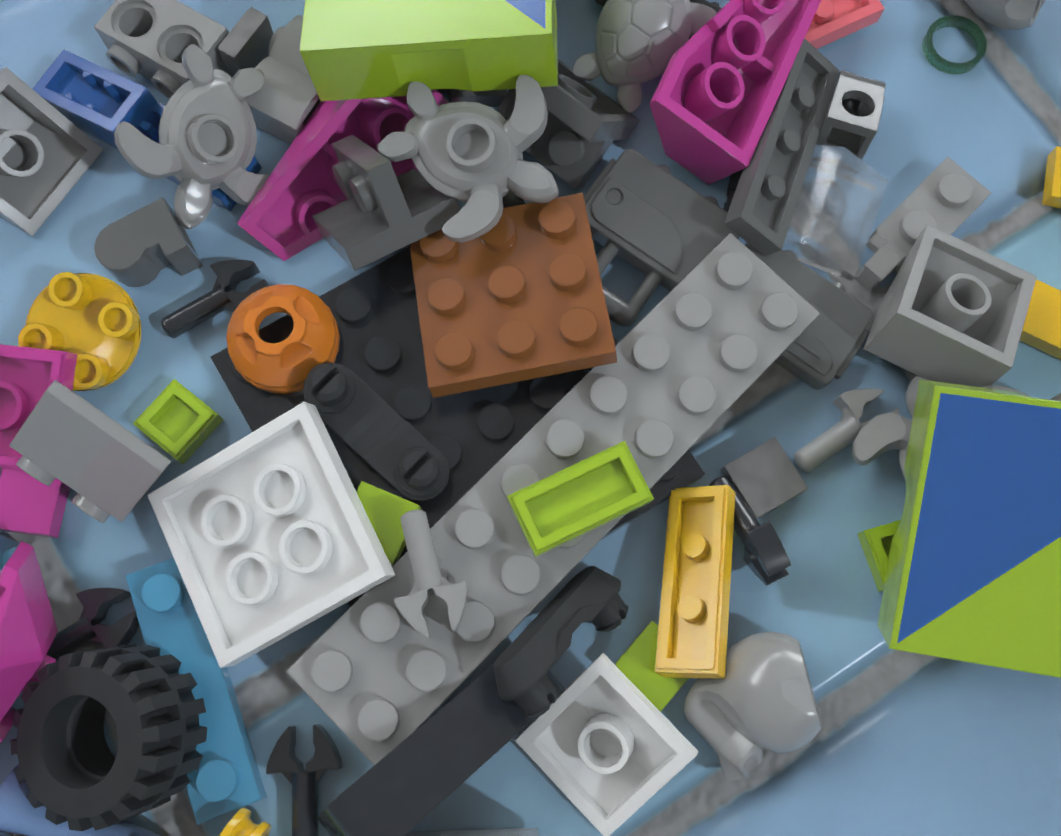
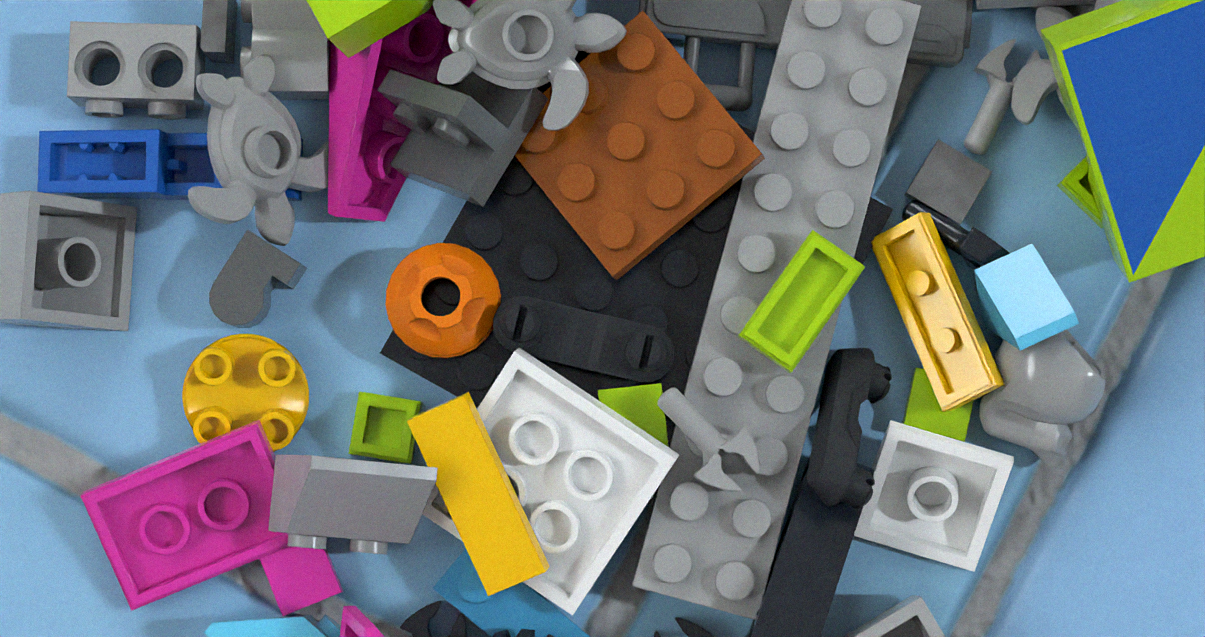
camera: 25 degrees left, 10 degrees up
(200, 511) = (478, 494): none -> yellow tile
(221, 298) = (347, 294): black bar -> none
(782, 608) = (1022, 299): none -> slope

